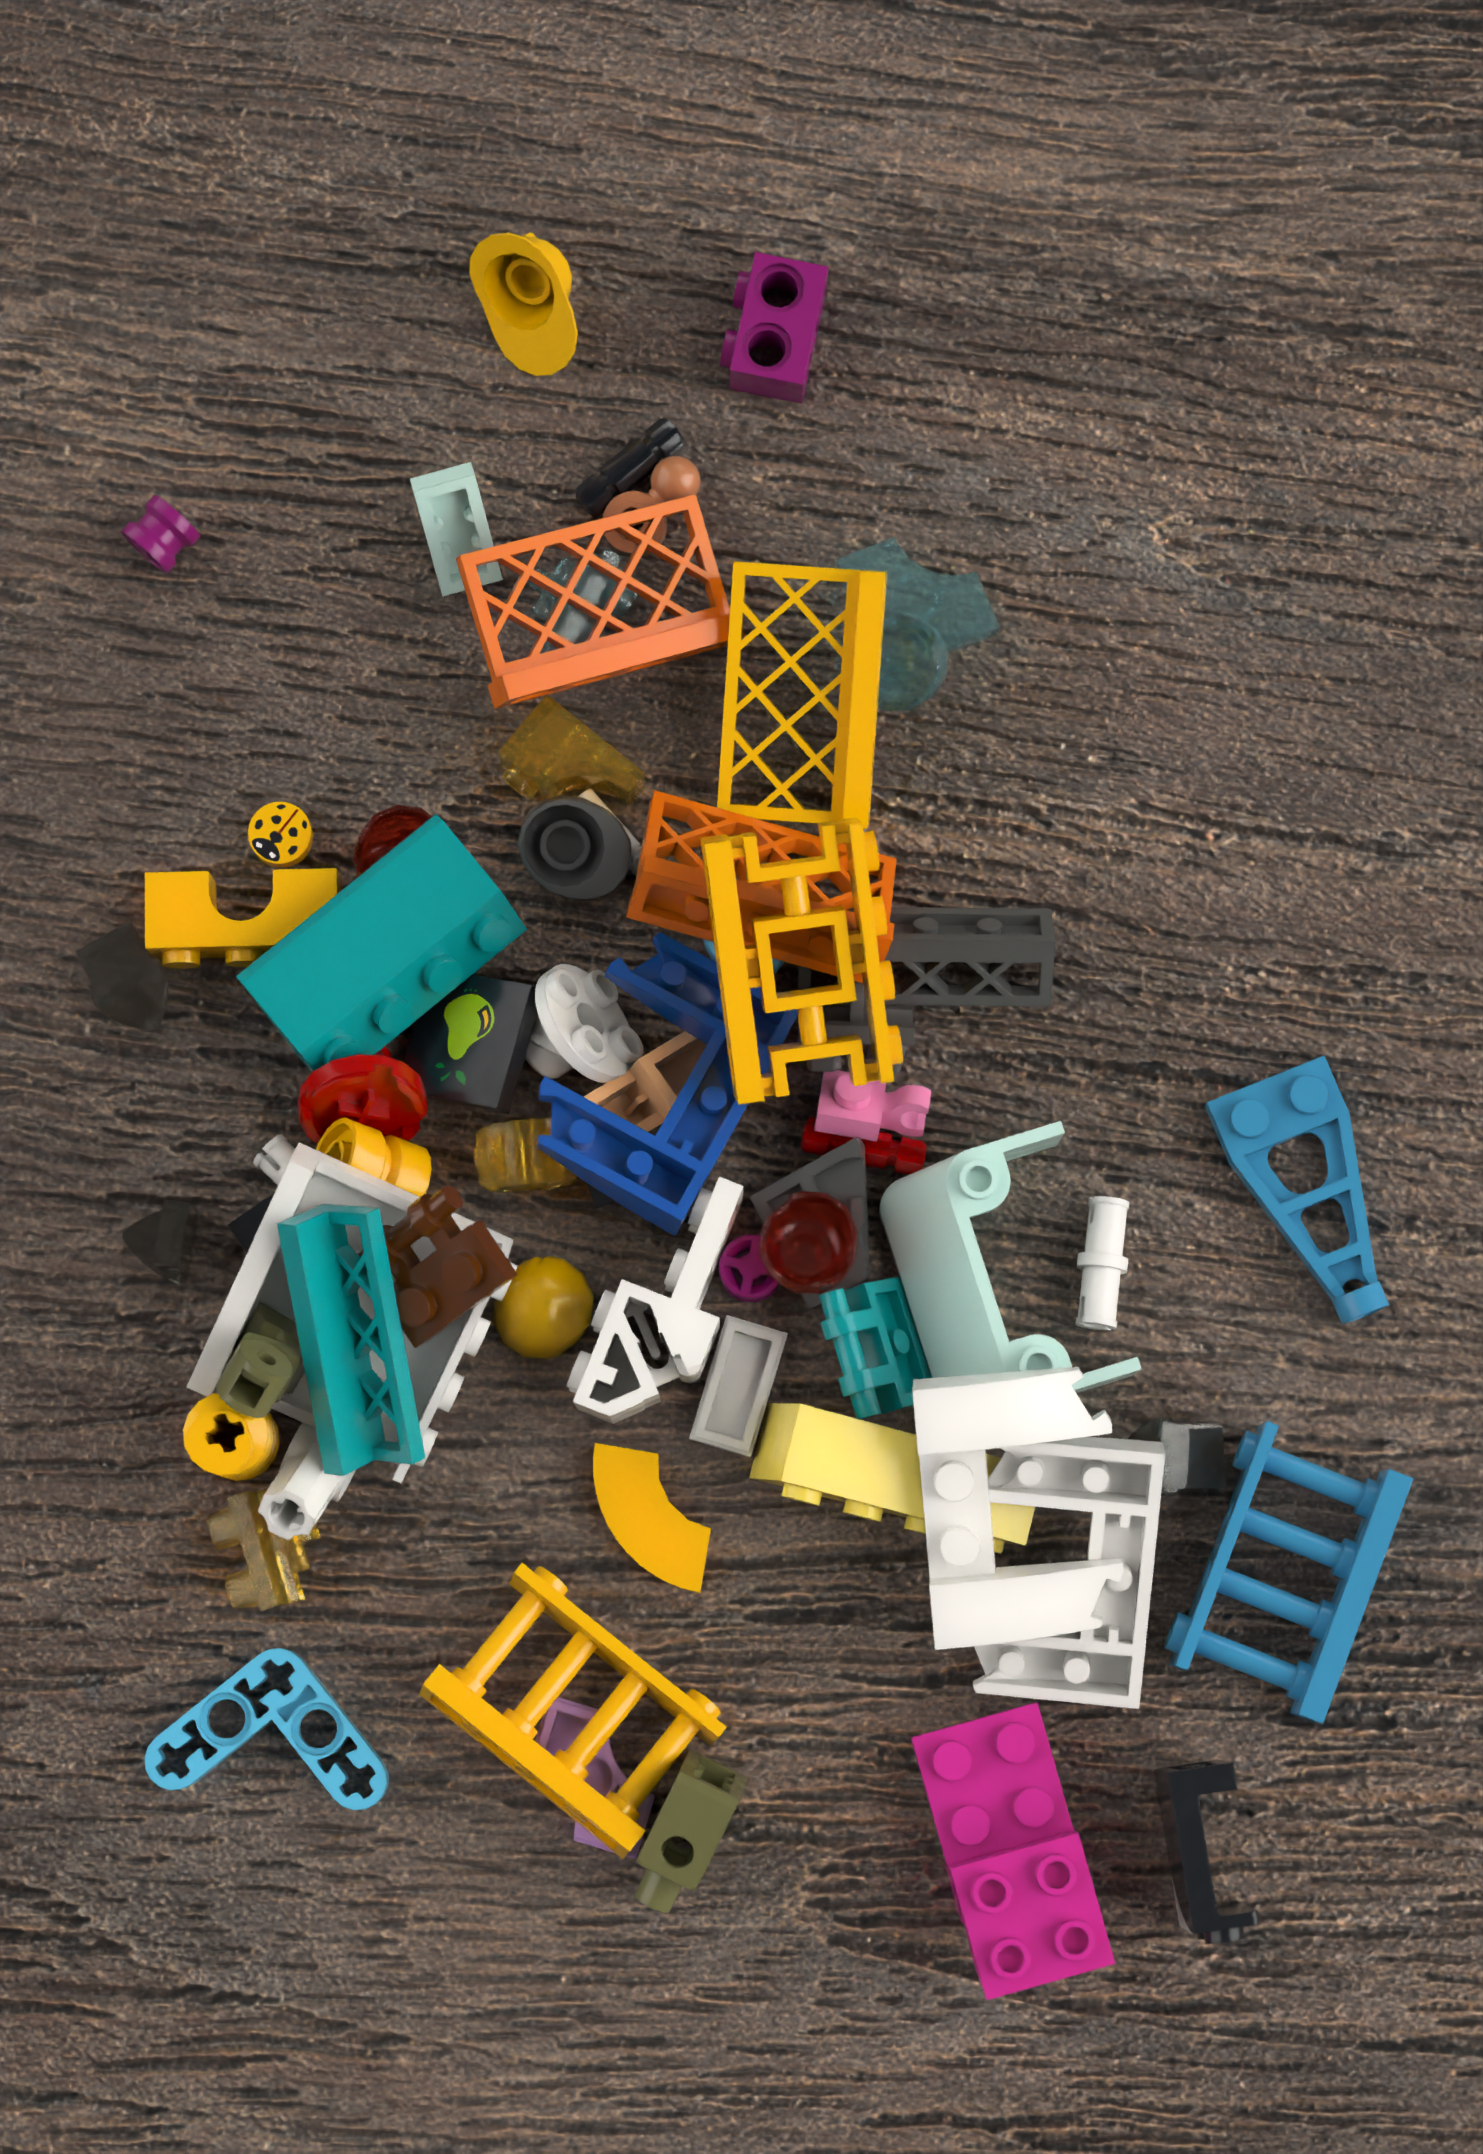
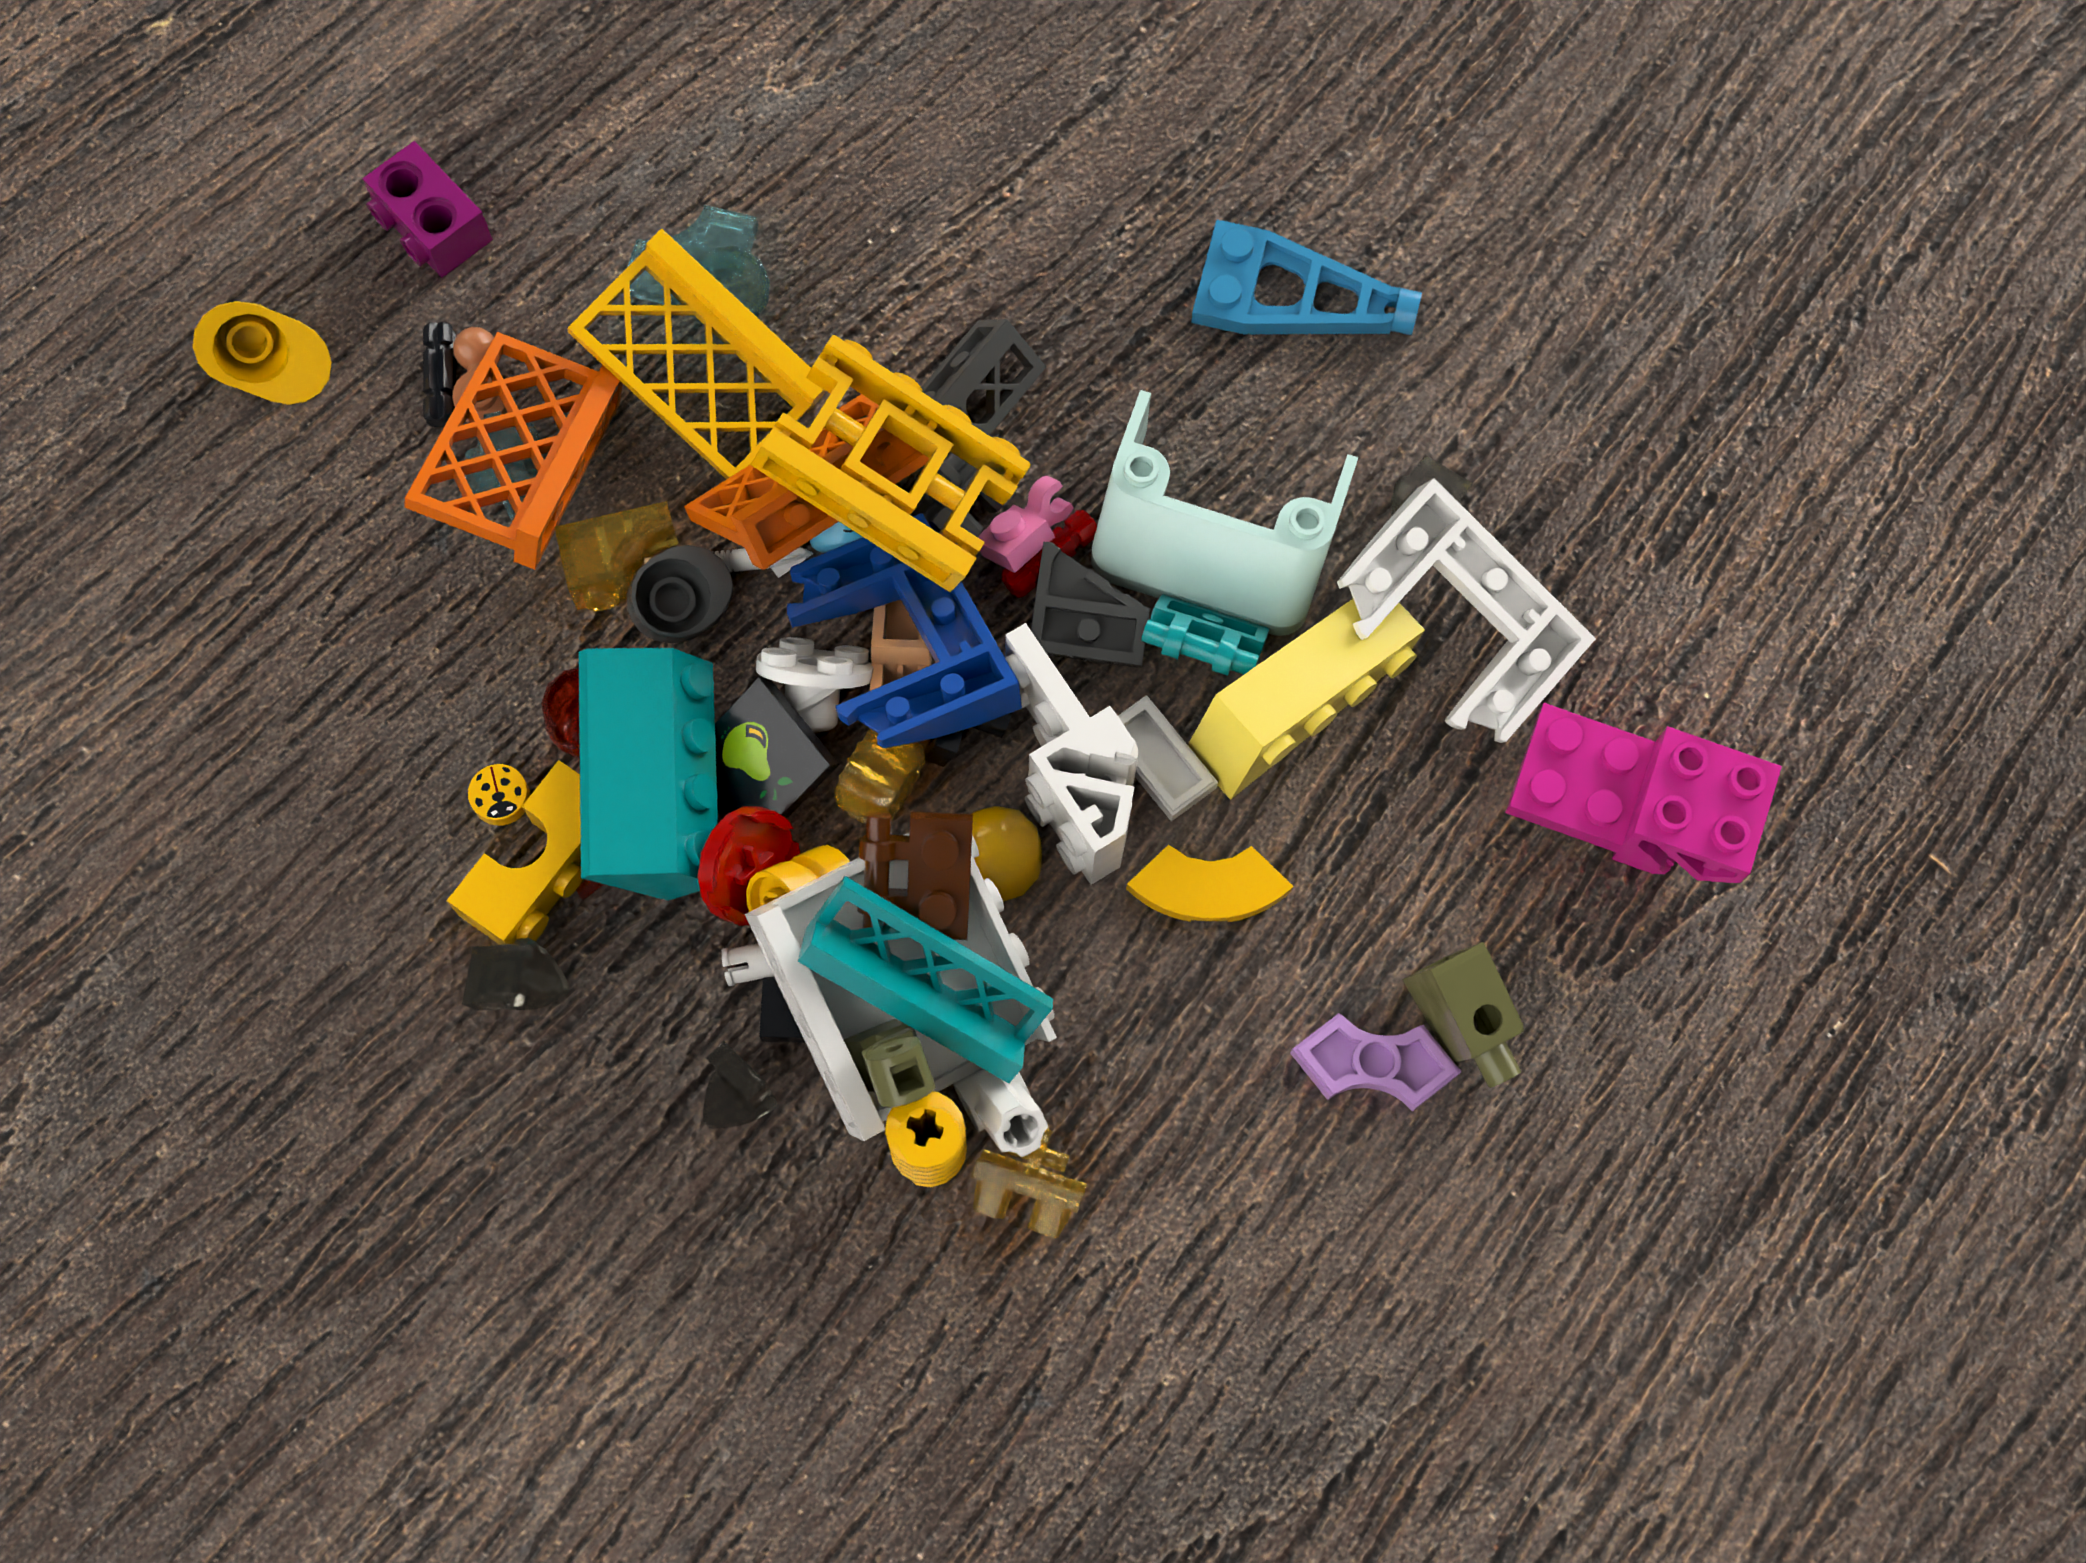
camera: 55 degrees left, 10 degrees down
(160, 534) = (205, 719): magenta wheel -> none
(287, 1713) = (1168, 1258): medium azure beam -> none
(454, 523) = (375, 504): light aqua tile -> none
(512, 1733) = (1307, 1090): yellow fence -> none
(744, 1255) = (1089, 675): magenta wheel -> none
(809, 1243) = (1098, 617): clear red hair -> none
(954, 1427) = (1311, 600): white wedge -> none
(1102, 1263) = (1254, 453): white pin -> none
(1188, 1853) = (1726, 669): black panel -> none
(1331, 1622) = (1589, 434): dark azure fence -> none

